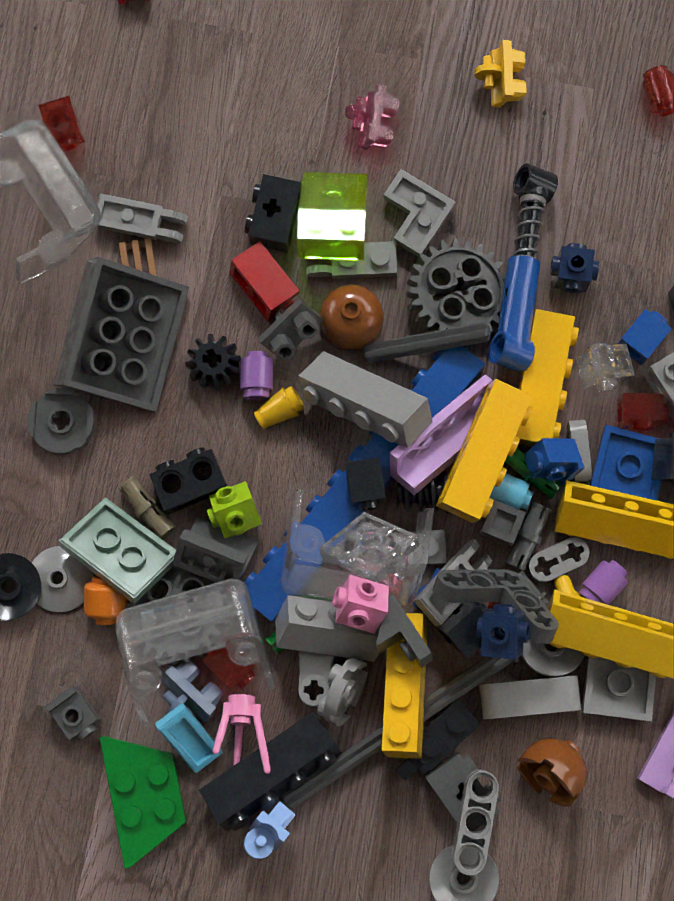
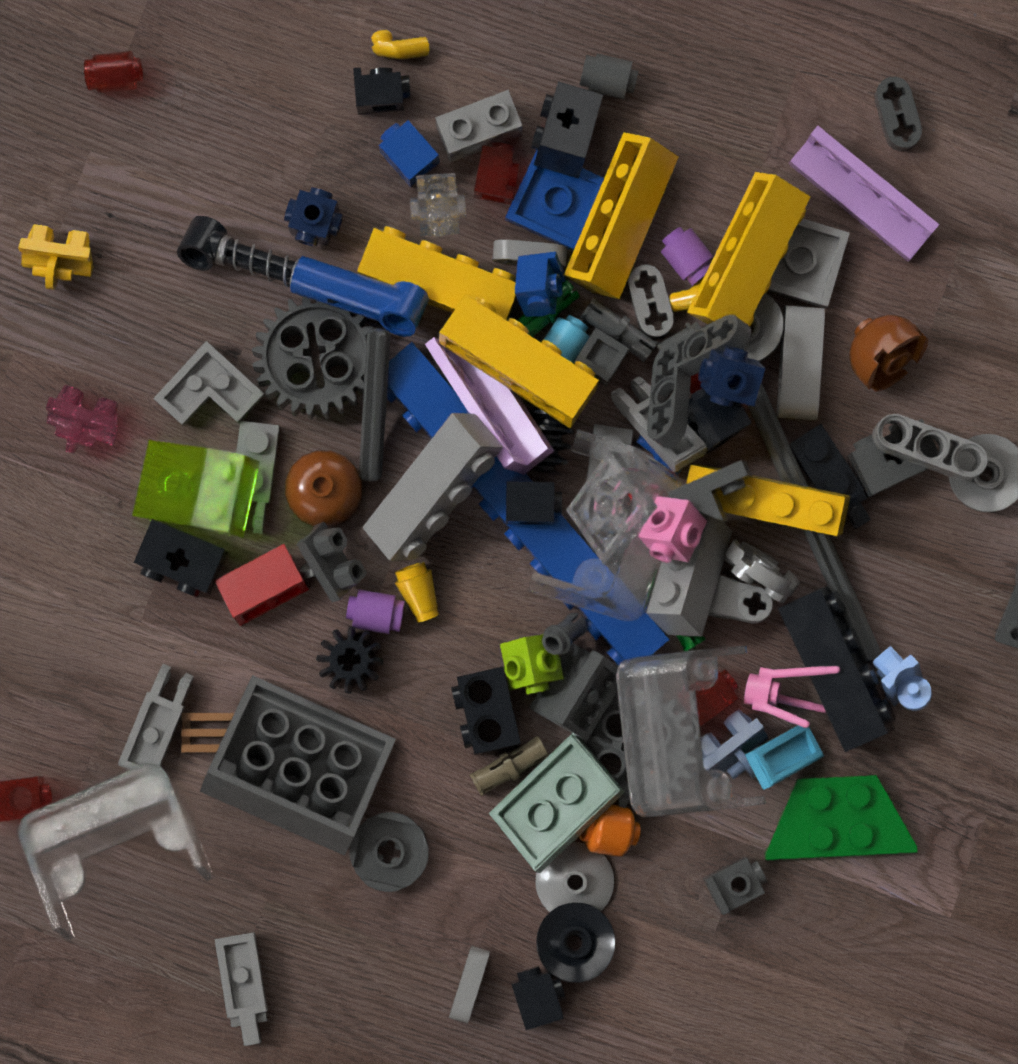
camera: 90 degrees left, 5 degrees up
(255, 527) = (559, 638): none -> dark grey pin

